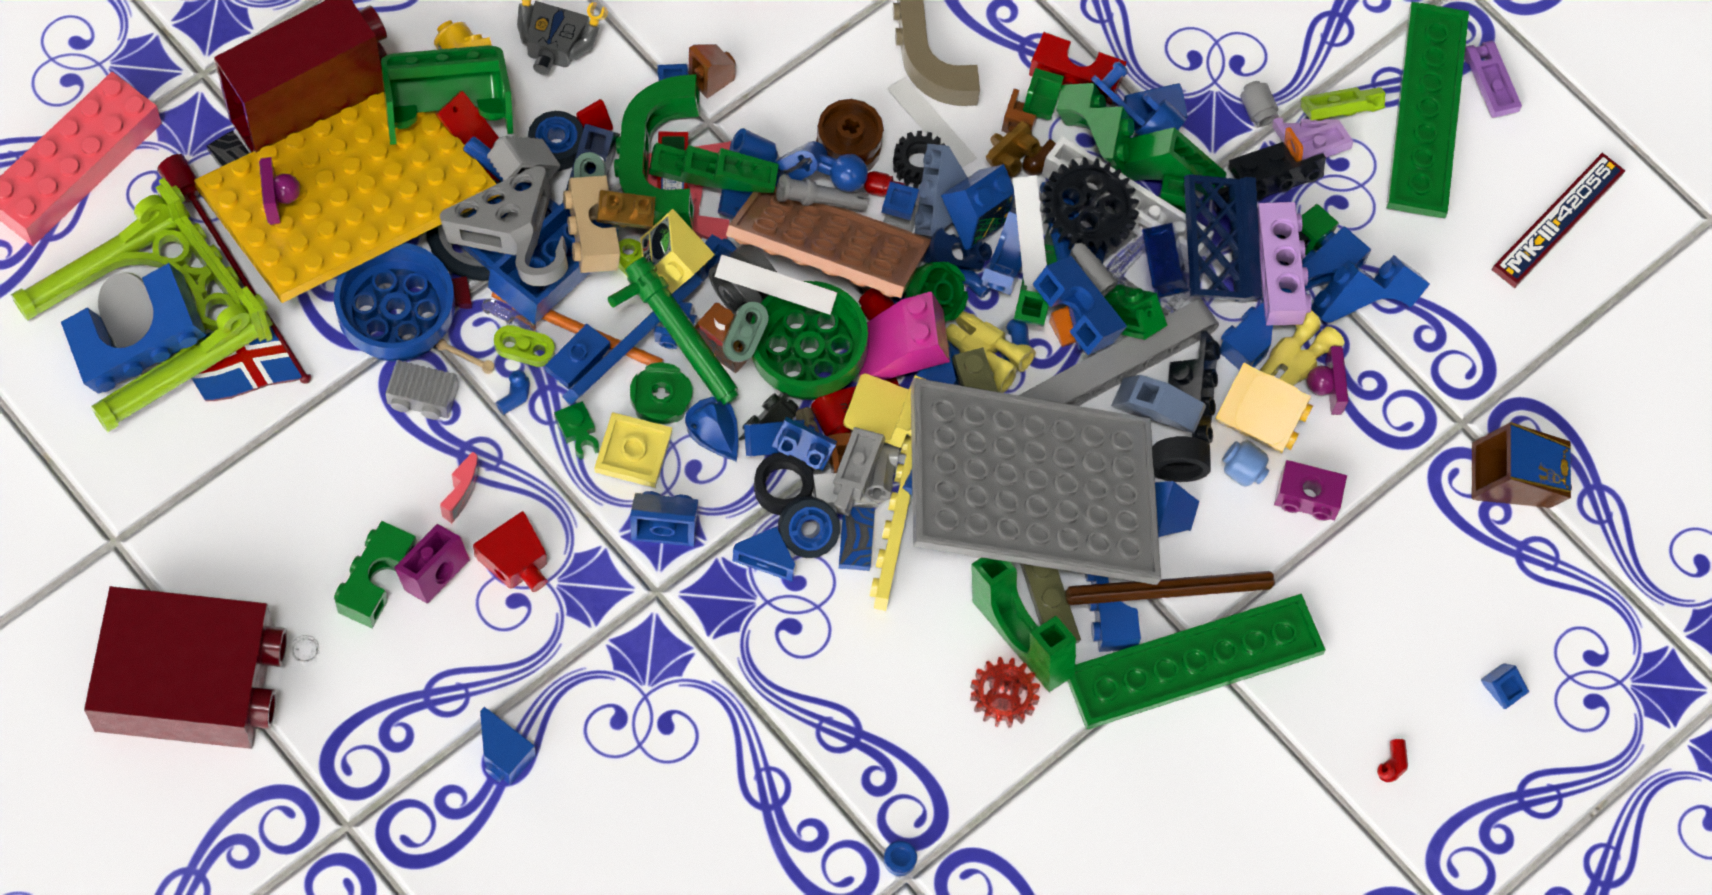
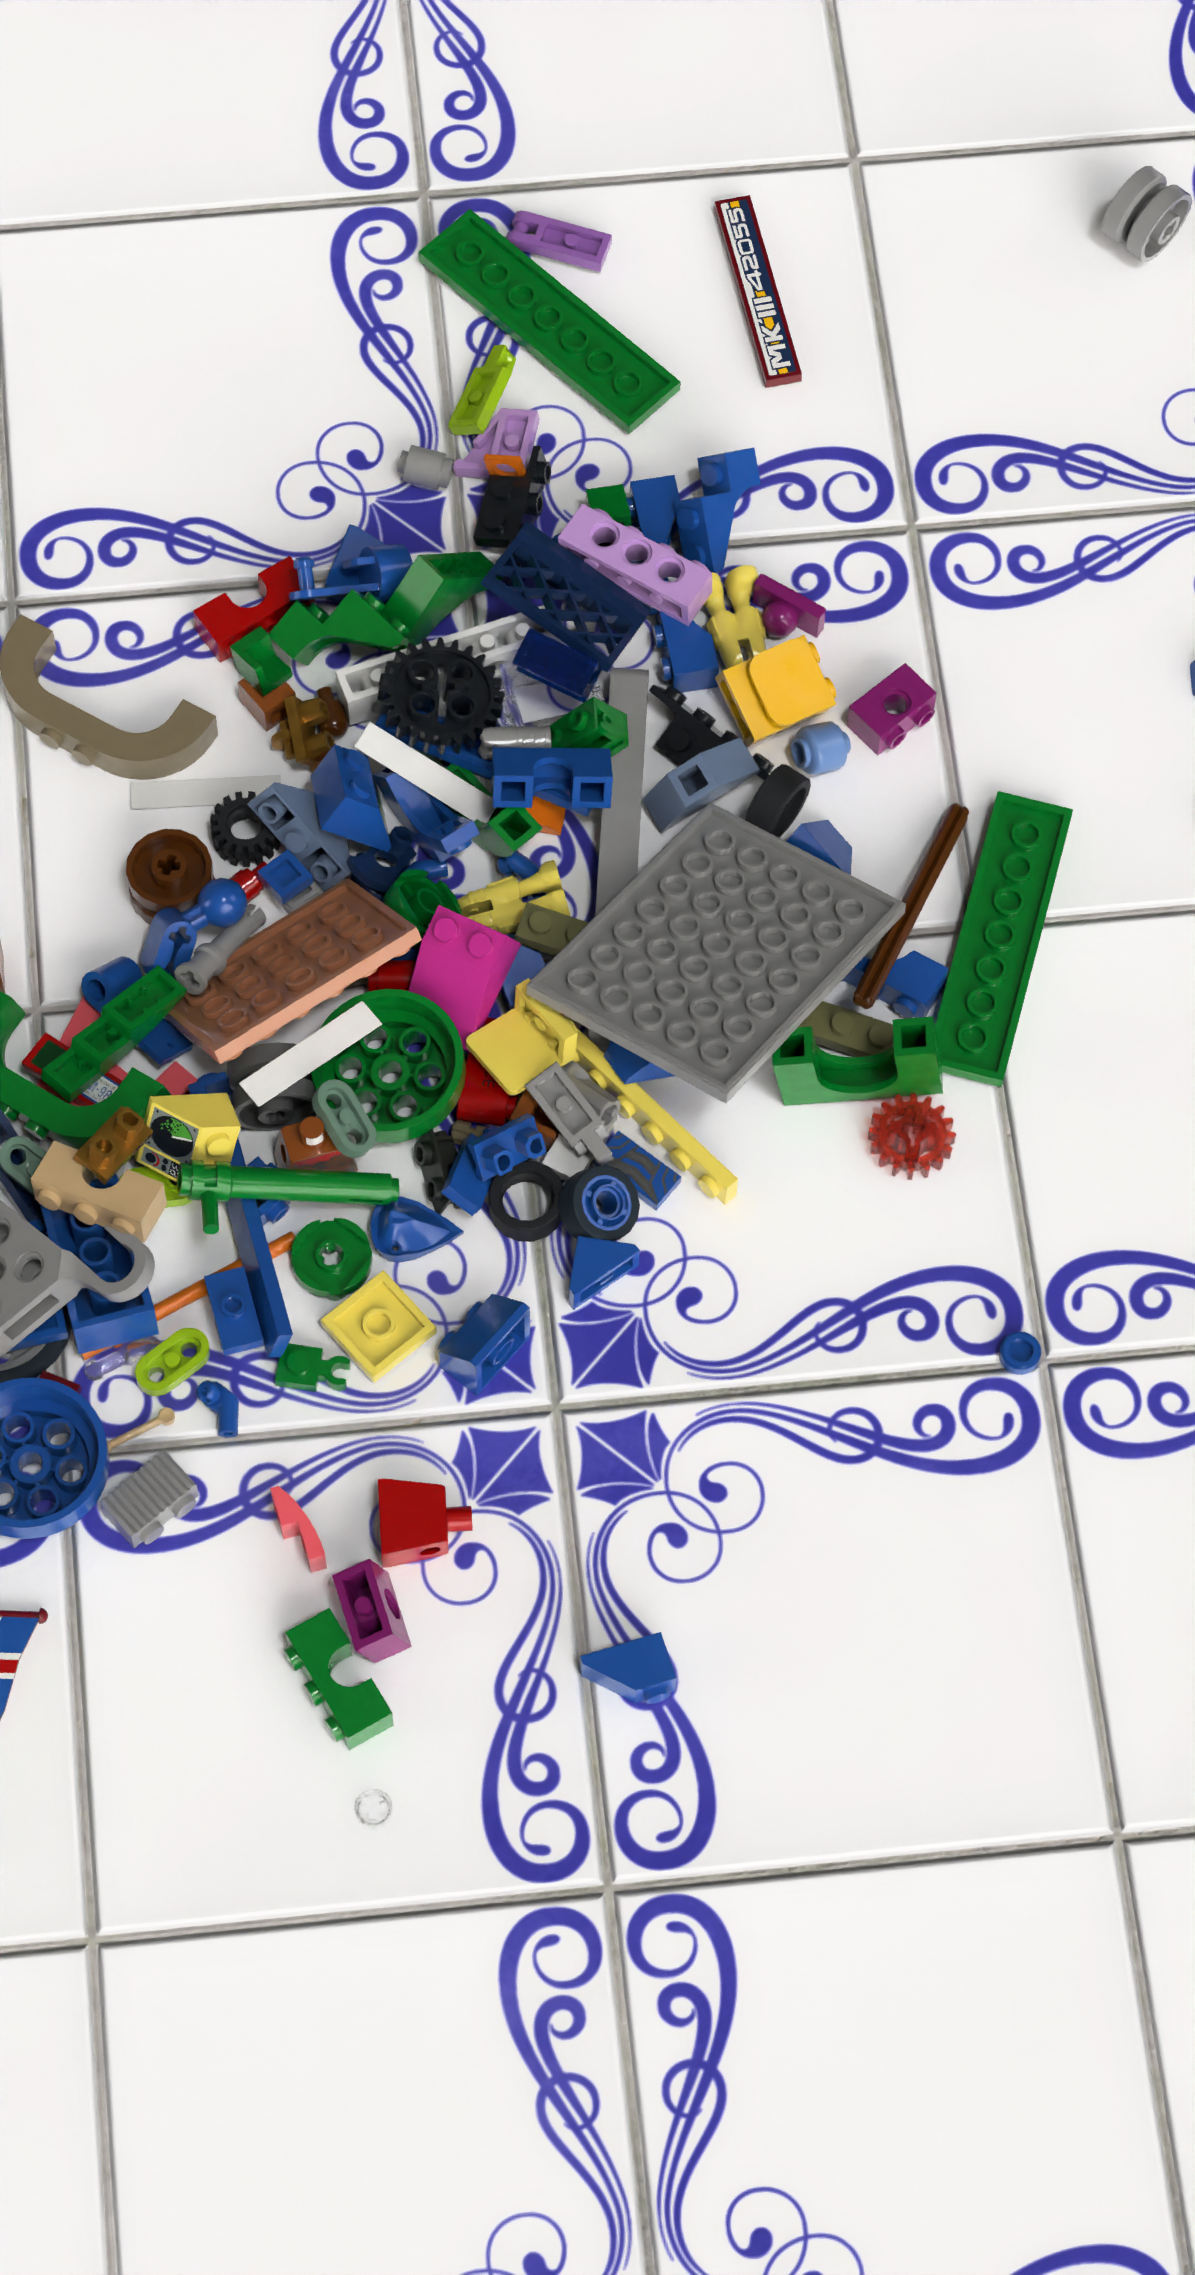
camera: 50 degrees left, 0 degrees up
(184, 668) = (316, 1945): dark red brick -> none
(1173, 192) = (476, 608): green panel -> none
(1521, 467) = (1003, 506): slope -> none

